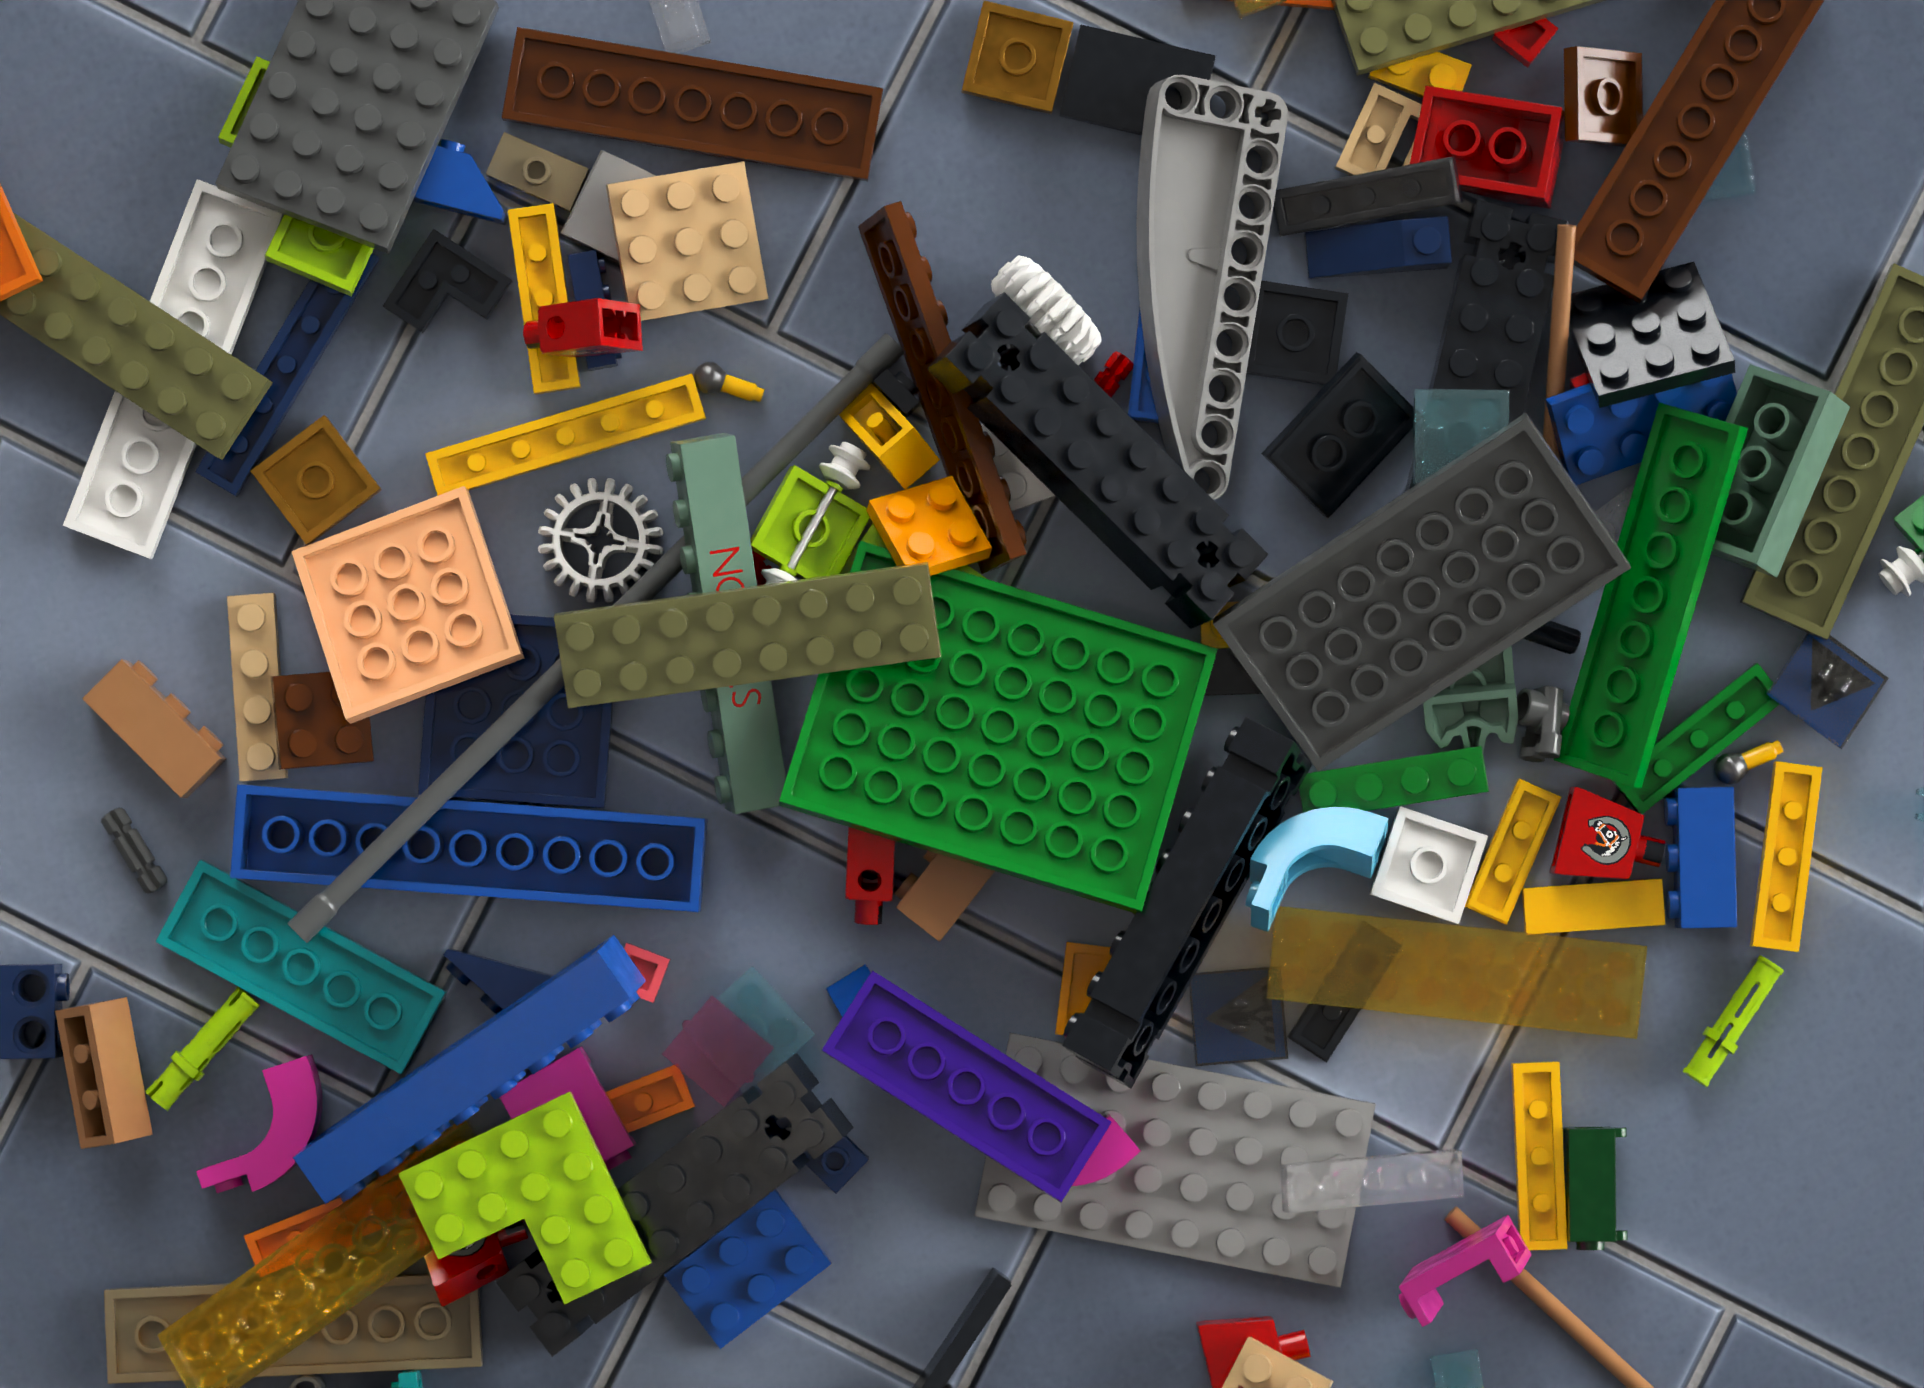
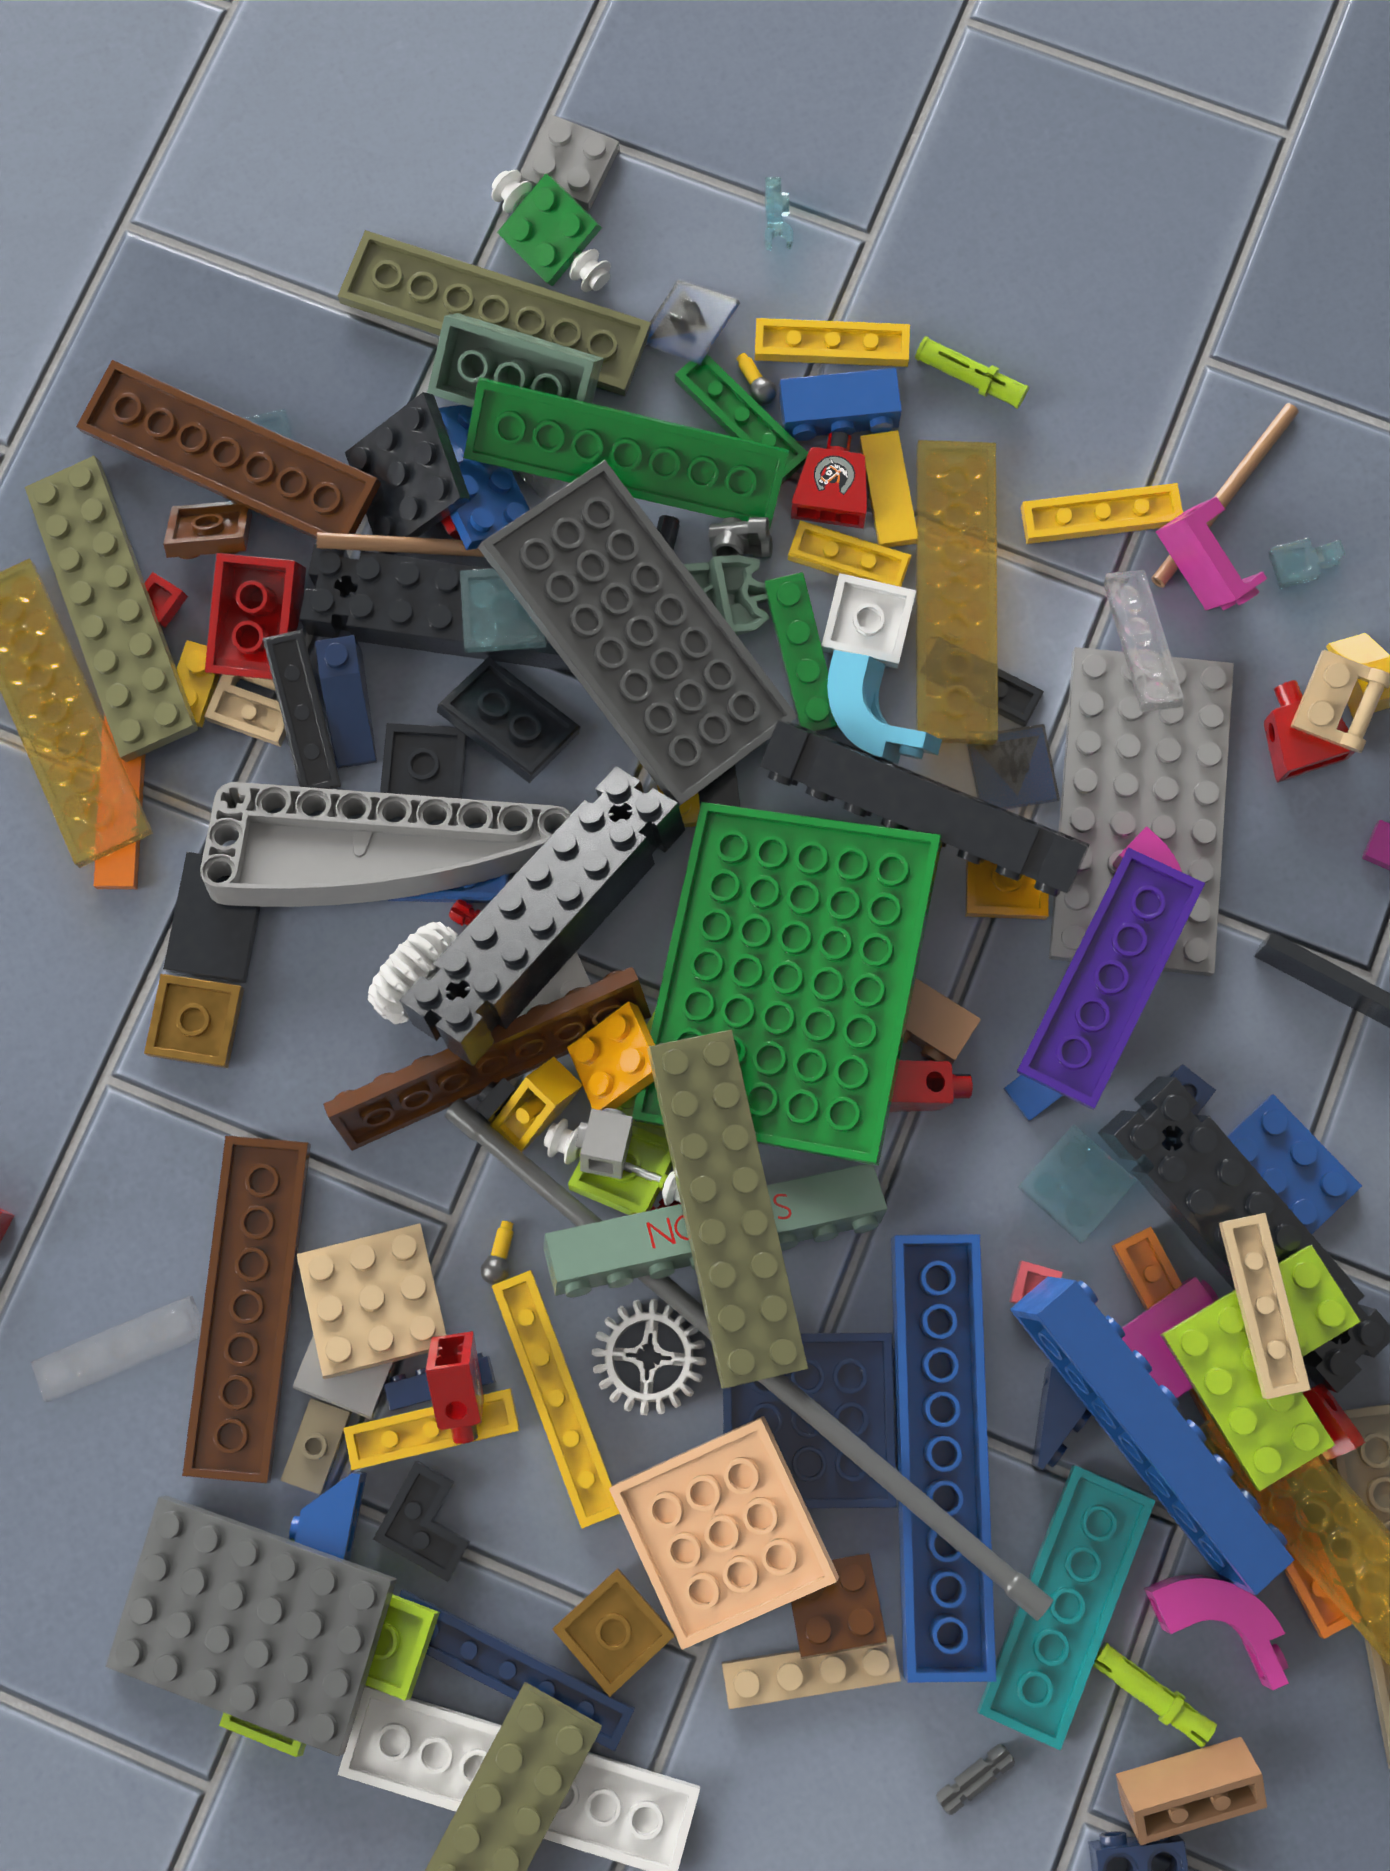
camera: 90 degrees left, 10 degrees down
(156, 726) = (858, 1768): medium nougat brick -> none
(588, 1198) = (1264, 1306): none -> tan plate
(718, 1051) = (1099, 1209): clear pink piece -> none
(835, 509) = (604, 1142): none -> light grey brick
(1591, 1185) = (1121, 467): dark green brick -> none

